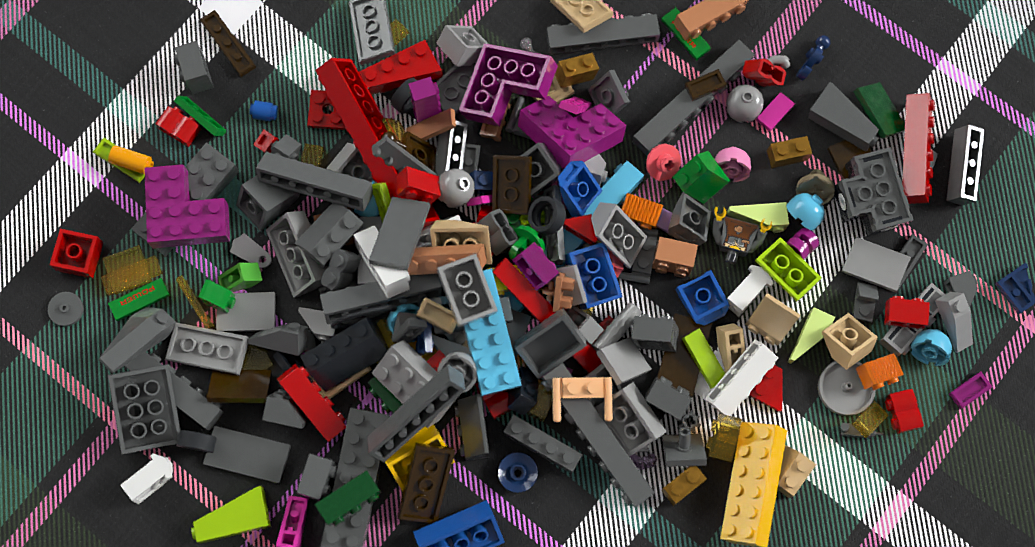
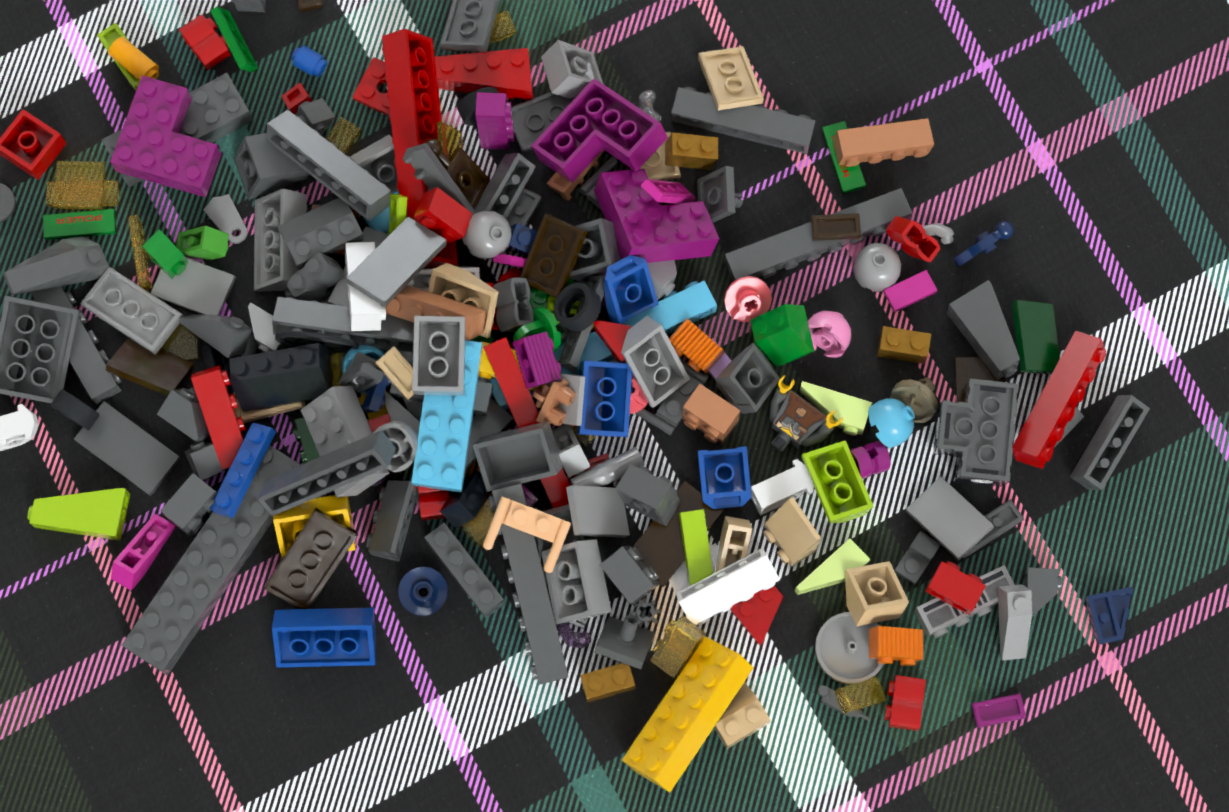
camera: 25 degrees right, 0 degrees up
(310, 440) = (203, 459): none -> dark grey brick
(346, 436) = (243, 470): none -> blue plate
(348, 499) = (215, 541): dark green brick -> none
(434, 125) = (495, 152): nougat tile -> none
(932, 346) = (971, 640): medium azure cylinder -> none

